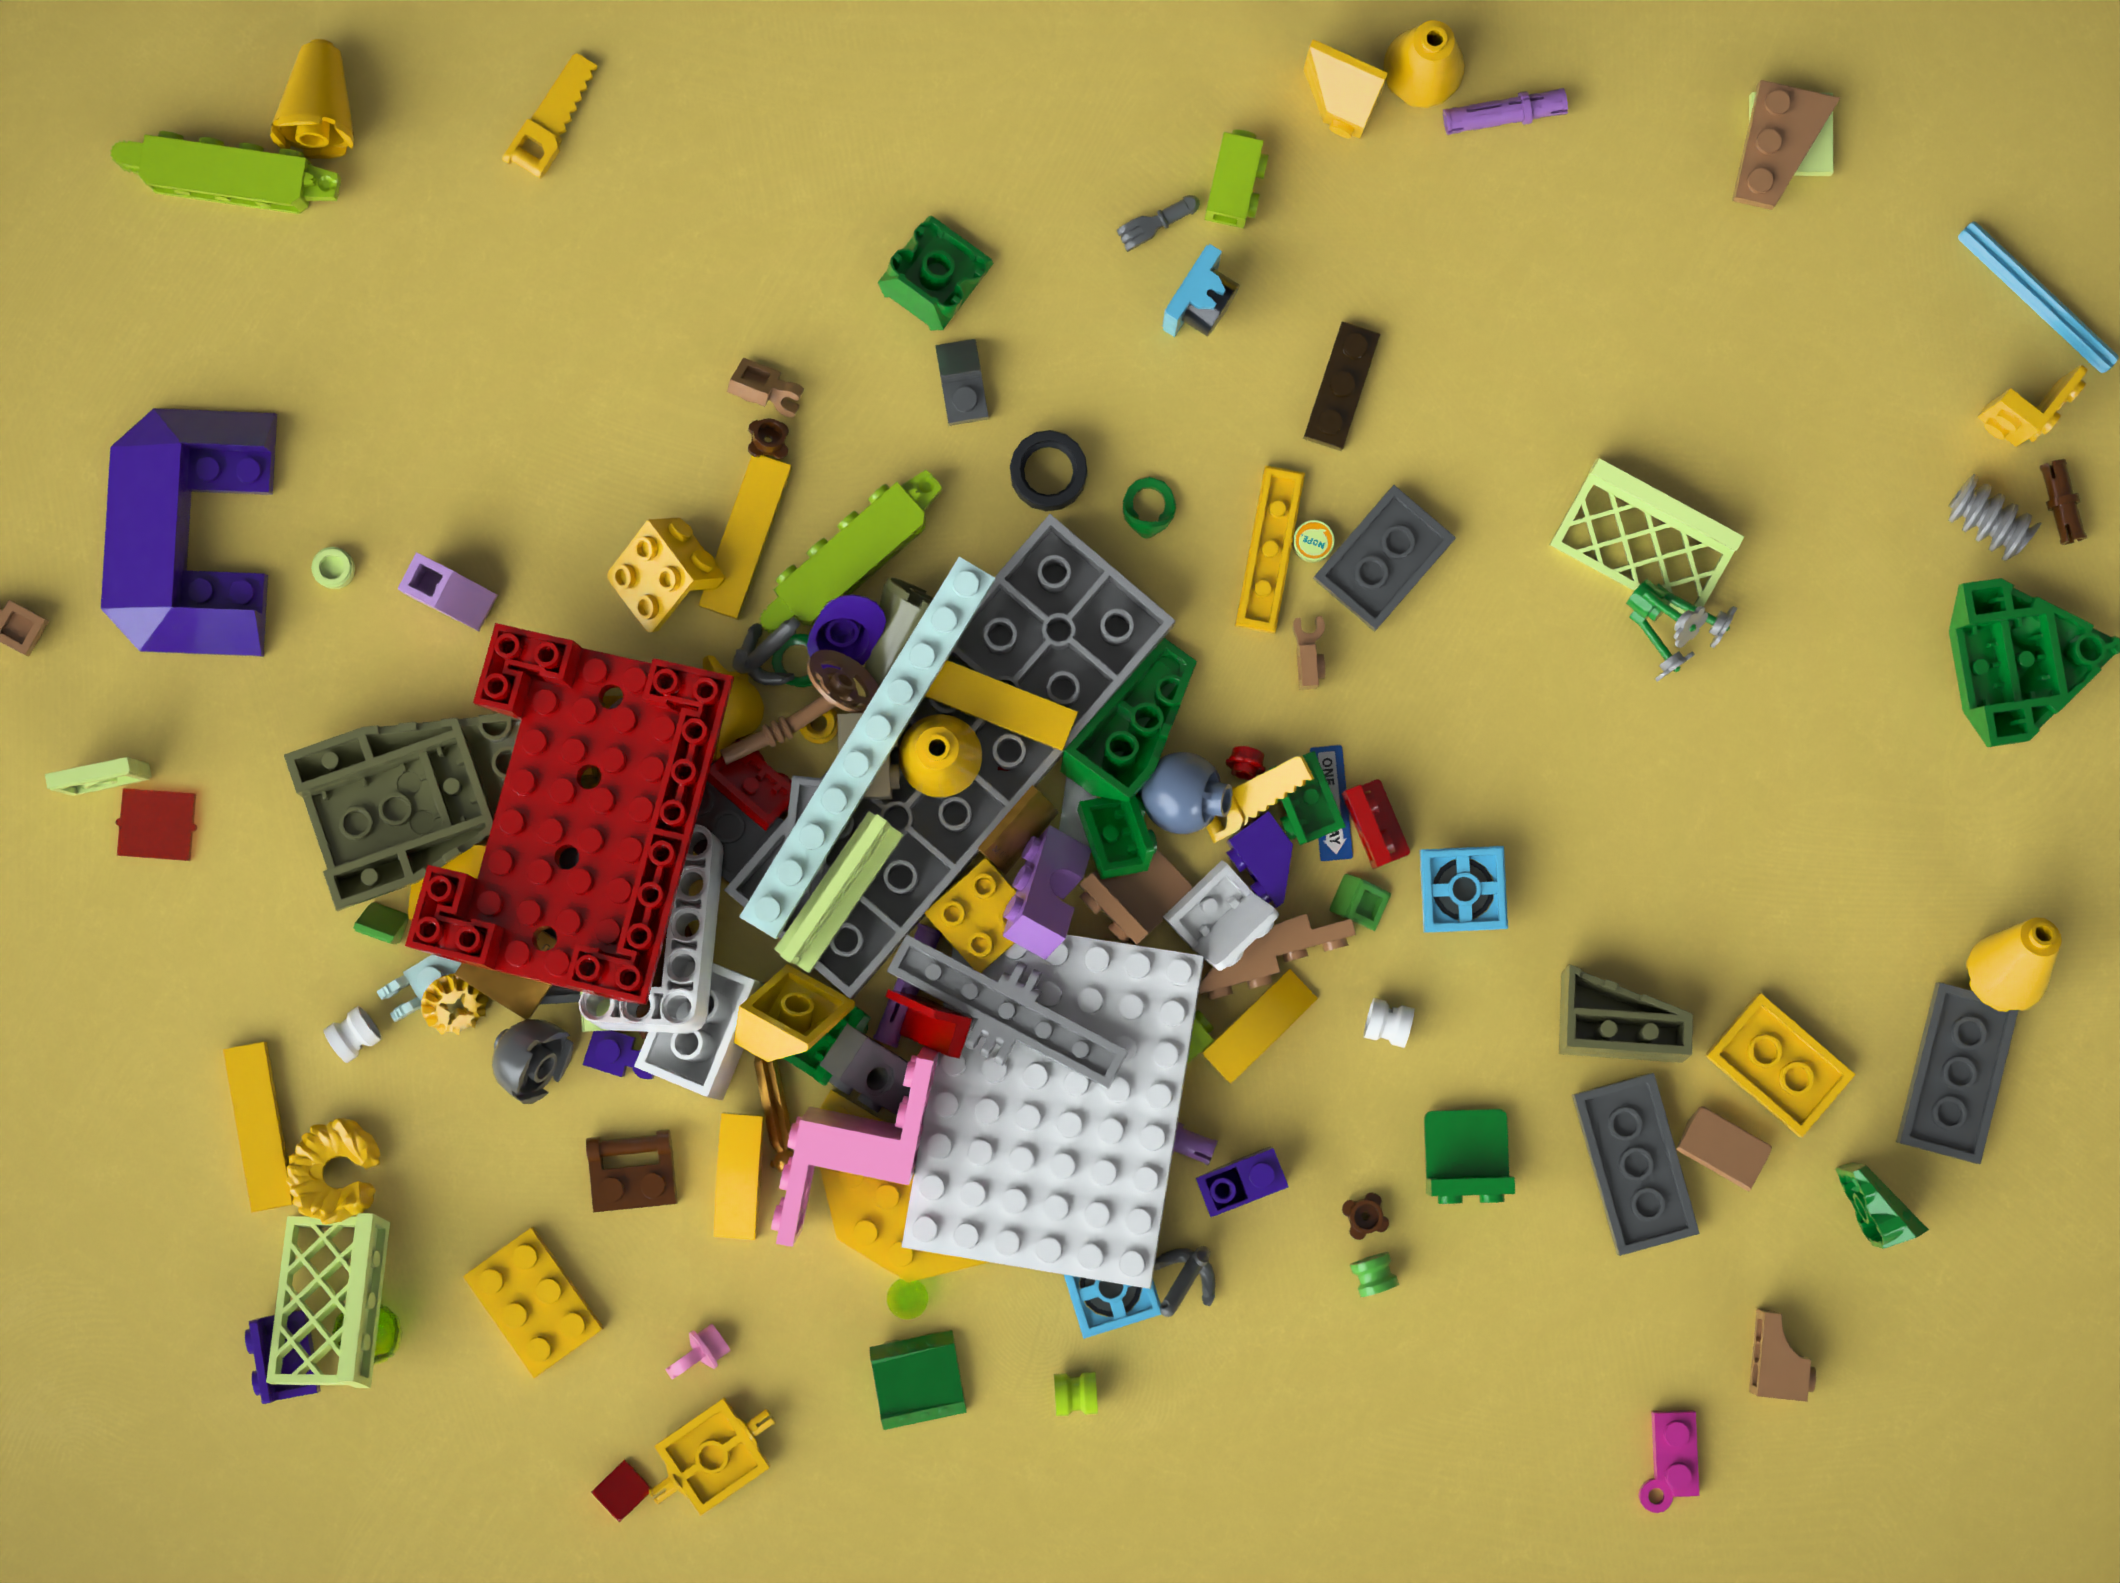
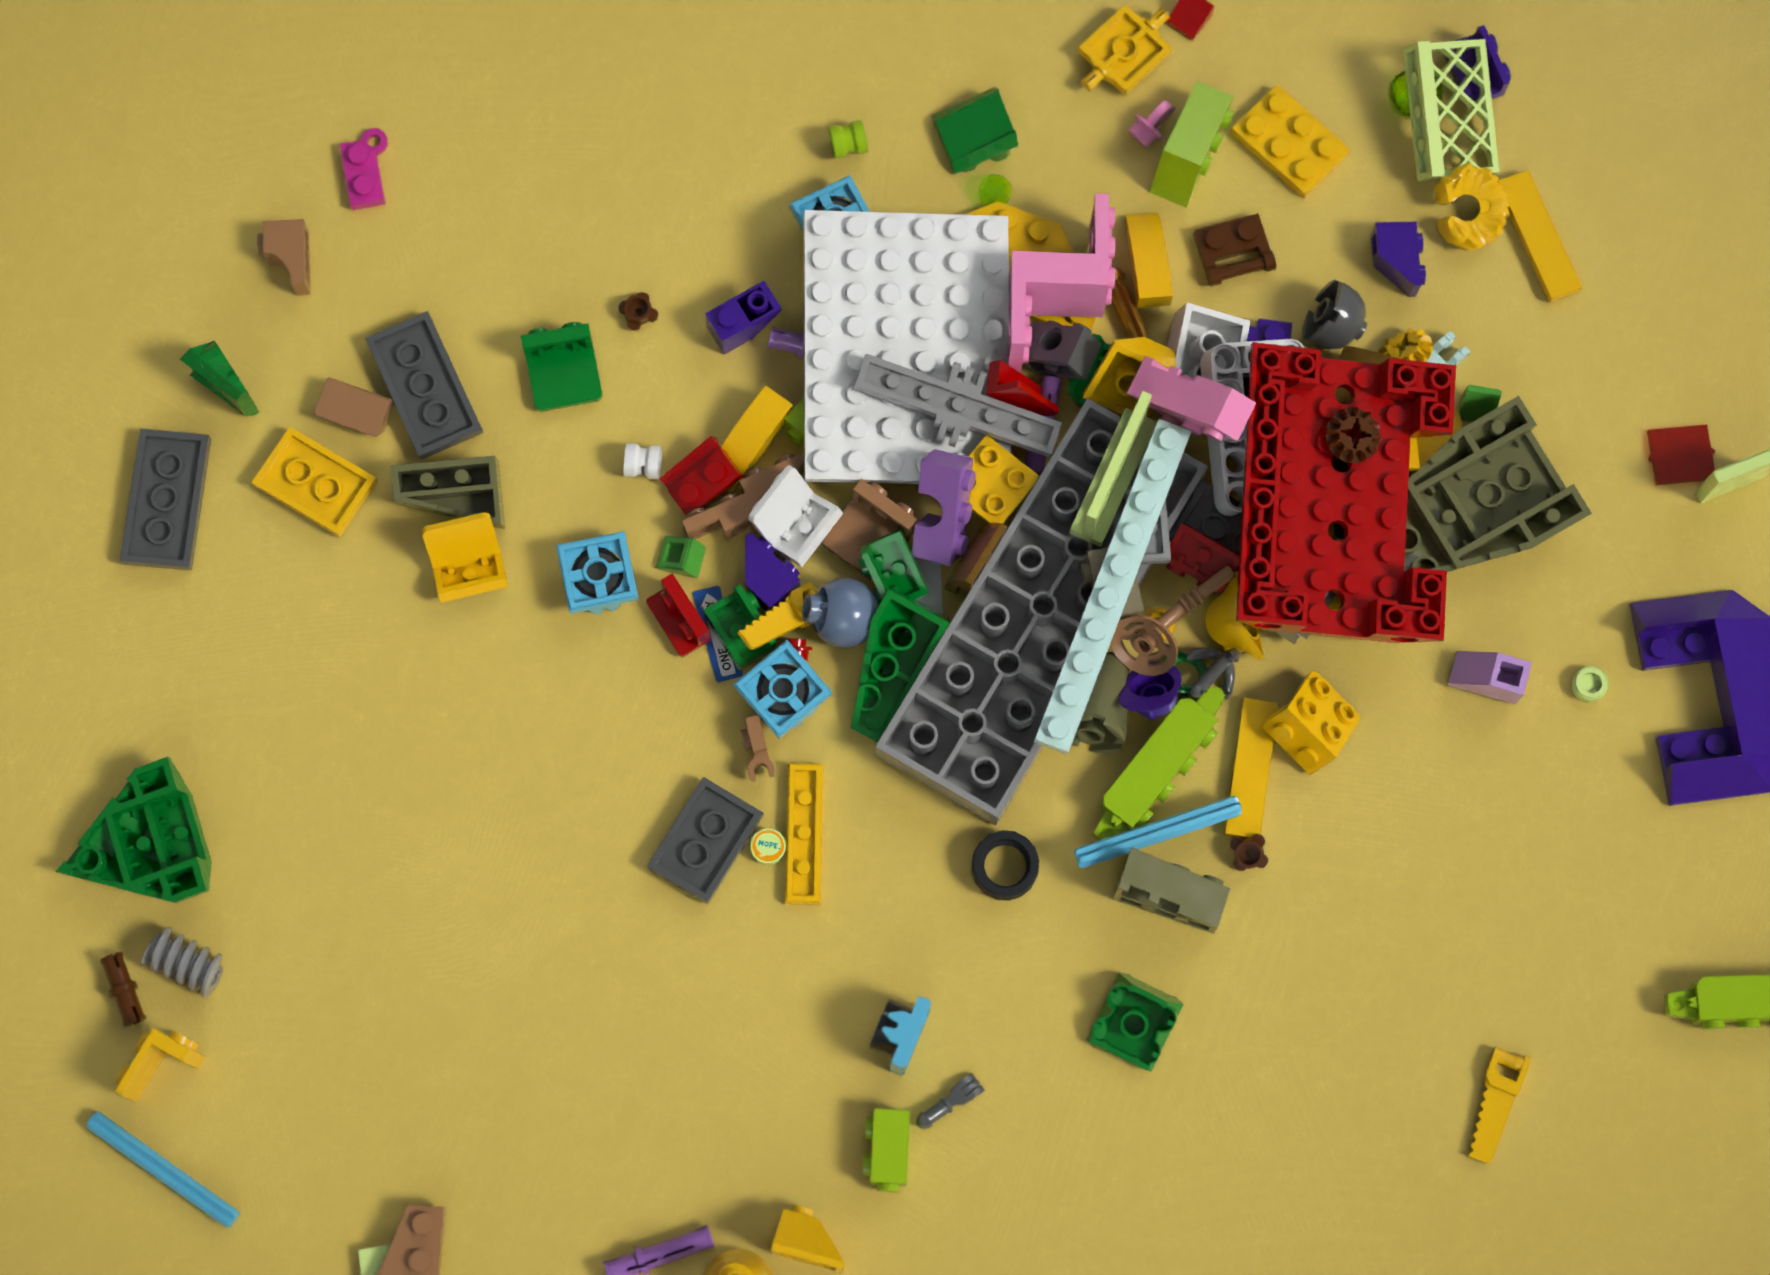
camera: 170 degrees right, 10 degrees down
(315, 104) = (1704, 1074): yellow cone -> none
(348, 1036) = (1481, 315): white wheel -> none
(436, 1127) = (1397, 254): none -> dark purple slope
(556, 897) = (1342, 445): none -> reddish brown gear
(653, 1315) = (1191, 142): none -> lime wedge
(730, 952) = (1192, 402): none -> bright pink wedge
(760, 384) = (1266, 897): medium nougat plate -> none
(866, 406) = (1171, 891): none -> olive wedge
(869, 473) = (1157, 831): none -> medium azure axle
(945, 773) = (1051, 599): yellow cone -> none
(962, 382) = (1094, 932): dark grey slope -> none
(1003, 705) = (1006, 649): yellow tile -> none
(1145, 528) = (927, 839): green piece -> none
(1195, 1263) = (768, 249): dark grey piece -> none
(1268, 713) = (783, 689): none -> medium azure piece
(1322, 990) = (701, 476): none -> red plate
(1341, 386) = (765, 984): dark brown plate -> none
(1374, 1274) = (624, 265): bright green wheel -> none
(1614, 932) = (465, 556): none -> yellow bracket
(1653, 504) = (464, 920): yellowish green fence -> none
(1653, 601) = (472, 837): plant -> none
(2014, 964) = (131, 586): yellow cone -> none

